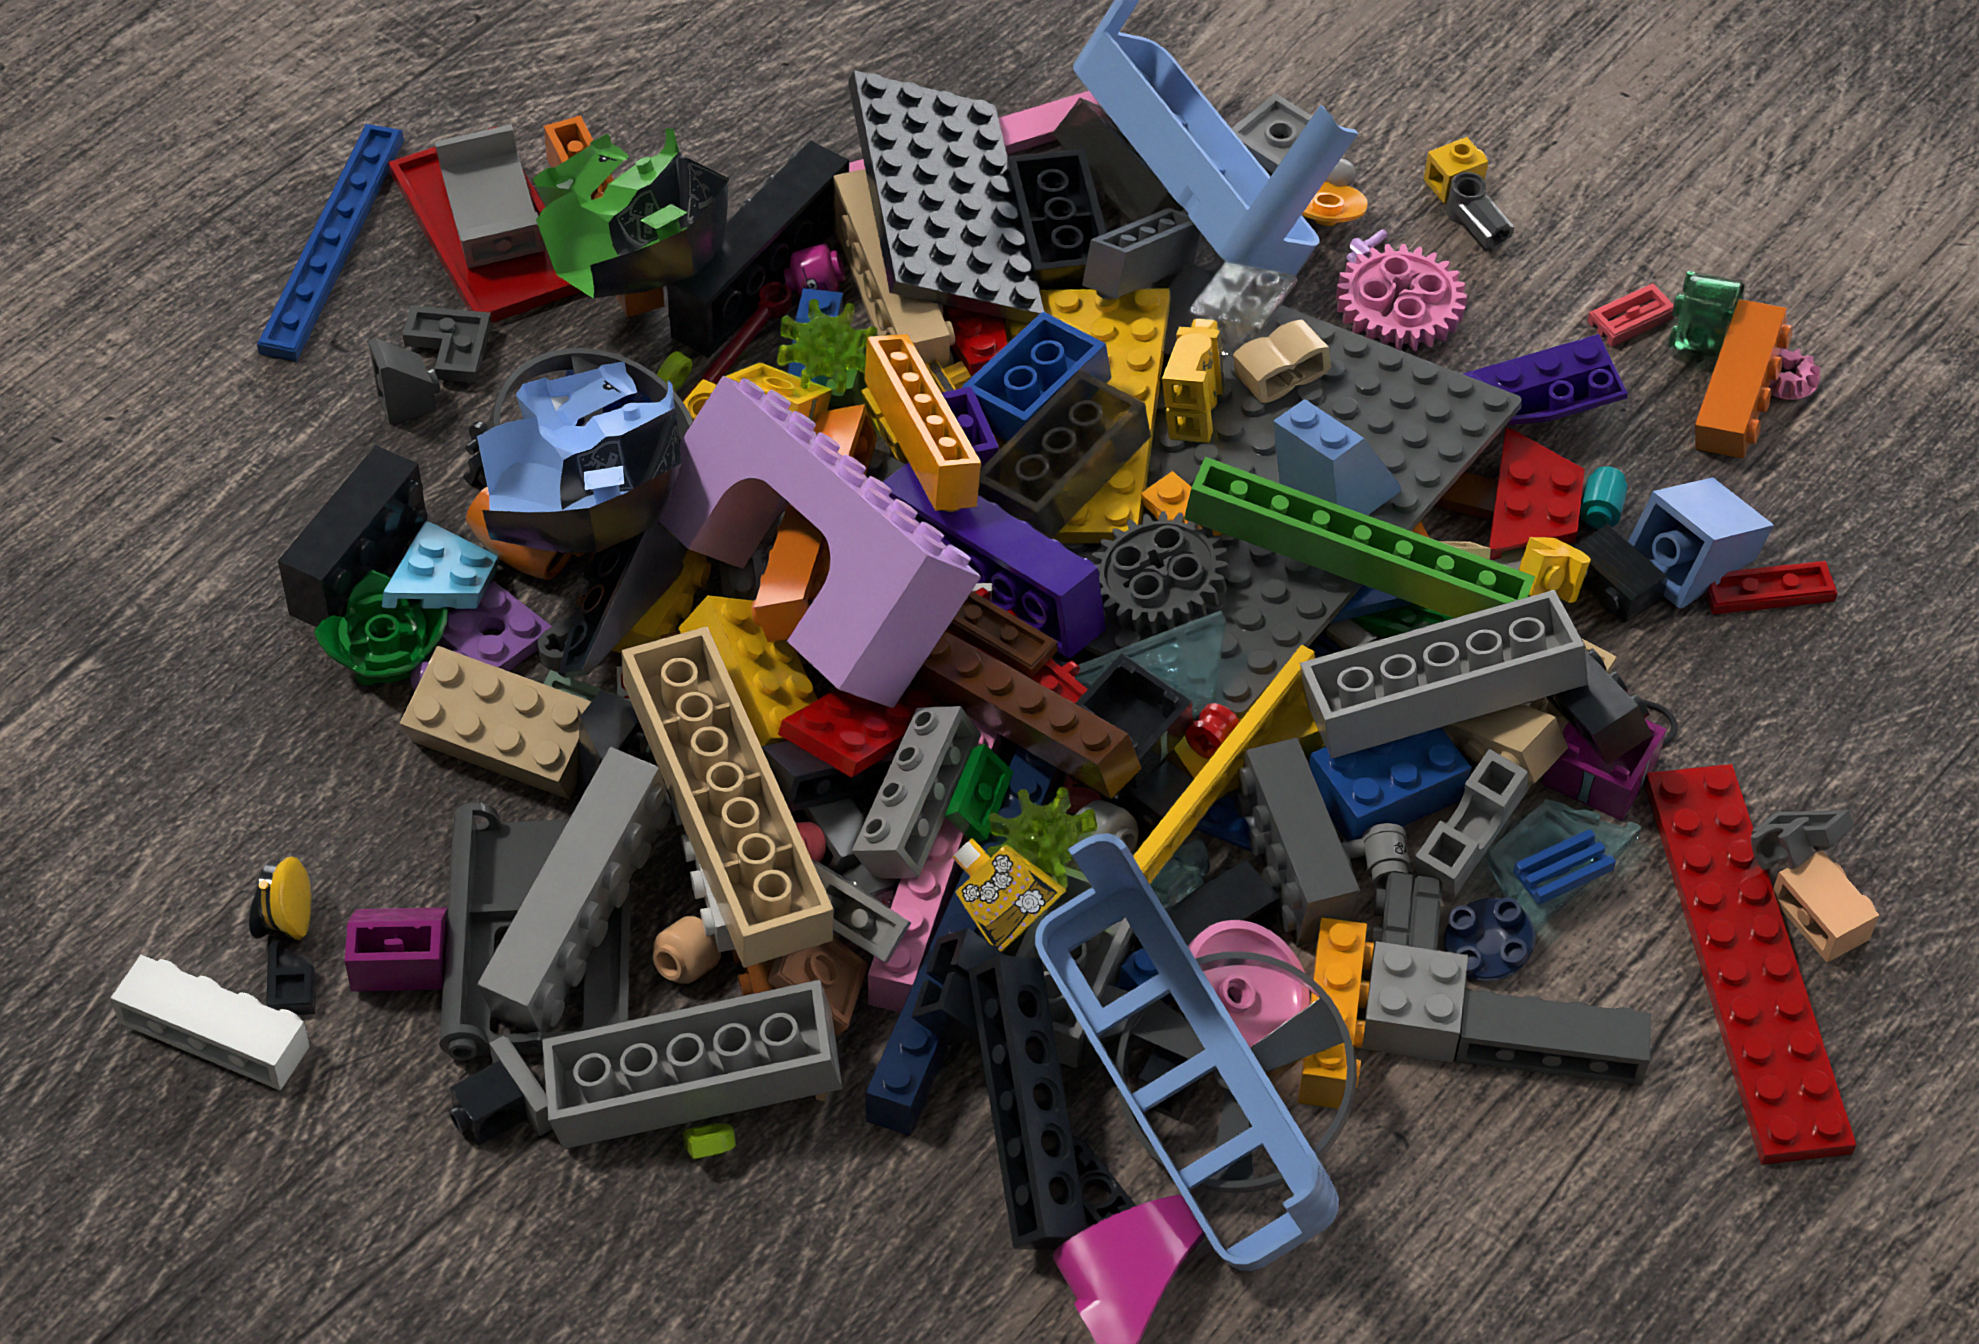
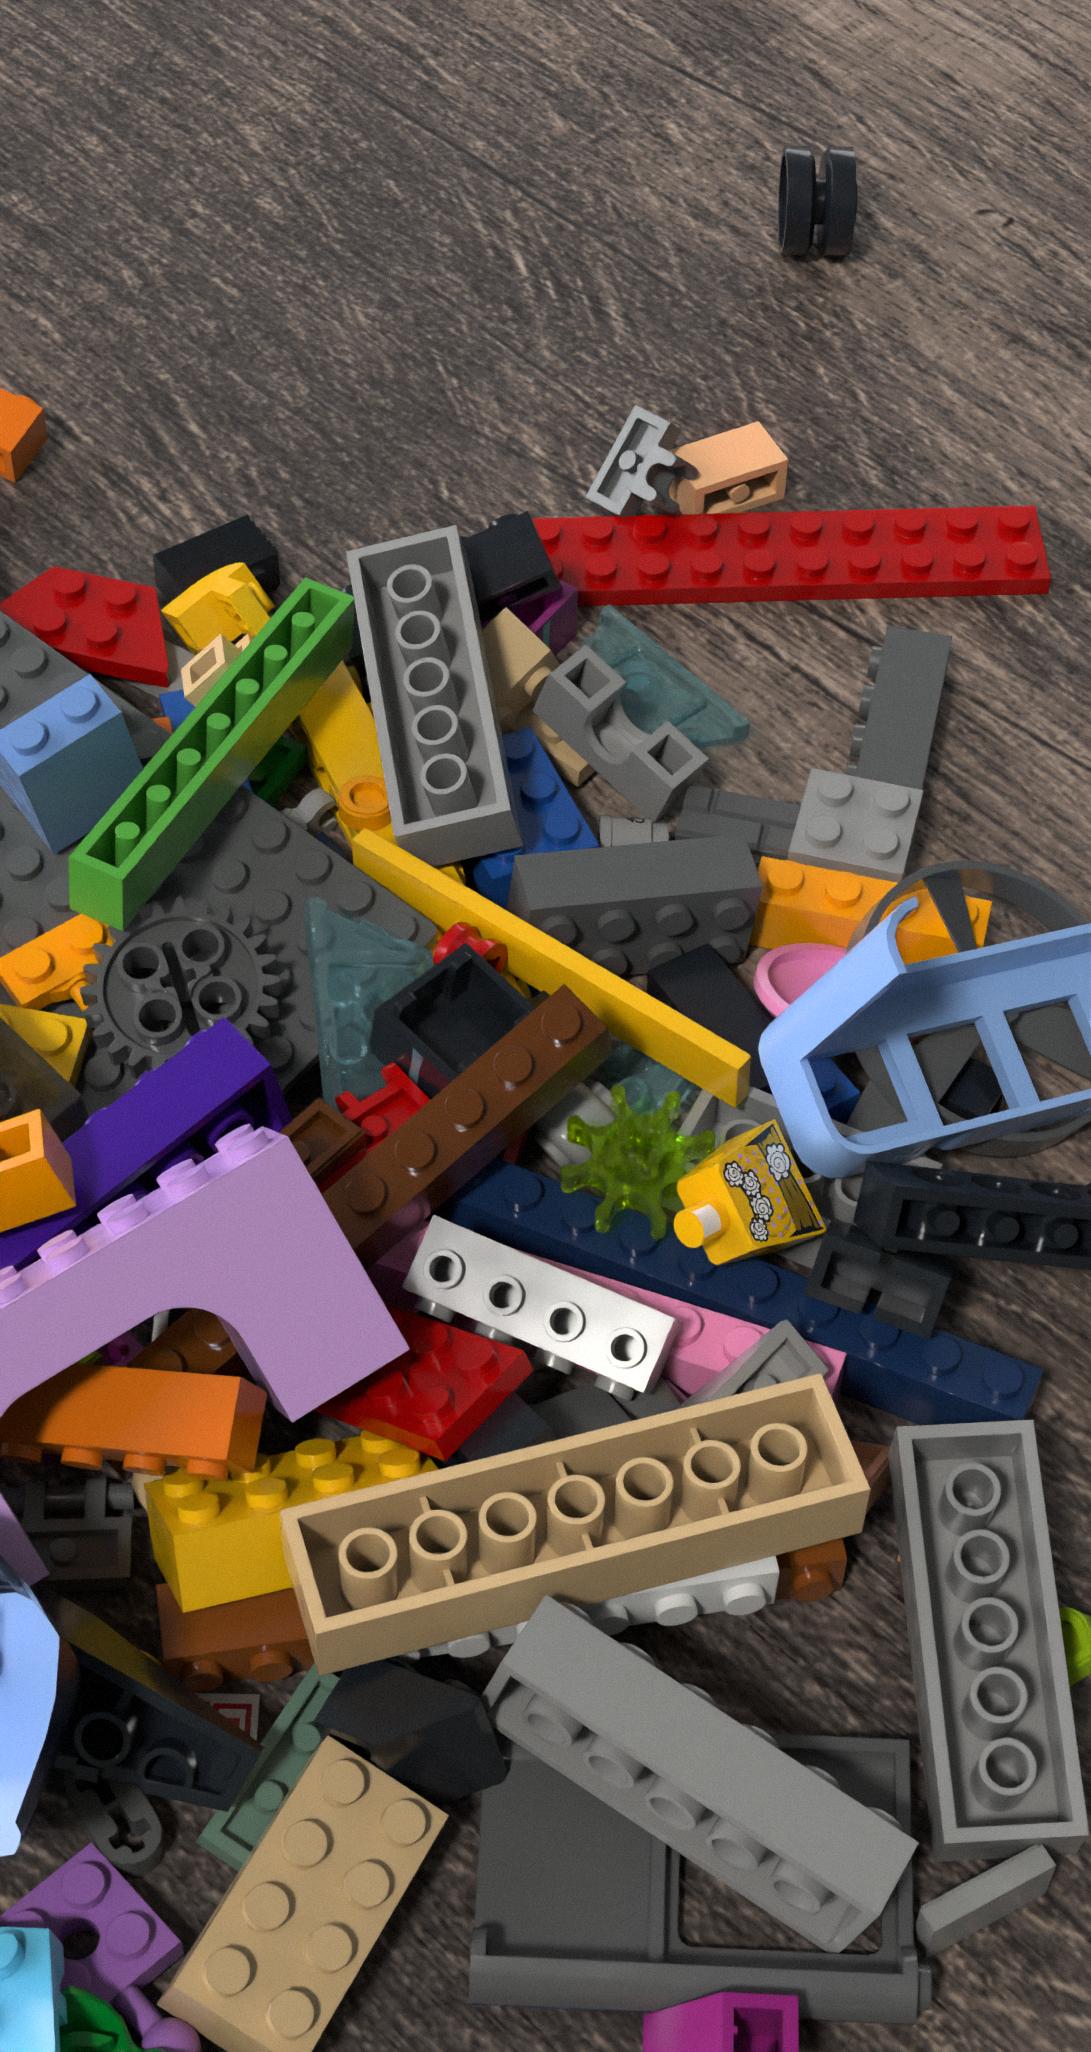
camera: 85 degrees left, 0 degrees up
(487, 1104) = (1017, 1953): black brick -> none
(684, 951) = (747, 1660): light nougat head -> none
(979, 793) = (525, 1230): green plate -> none
(1493, 935) = (757, 759): dark blue dish -> none
(1560, 860) = (656, 644): blue tile -> none
(1603, 497) = (94, 556): teal brick -> none
(1698, 536) = (182, 479): medium blue slope -> none
(1772, 588) = (250, 452): red tile -> none

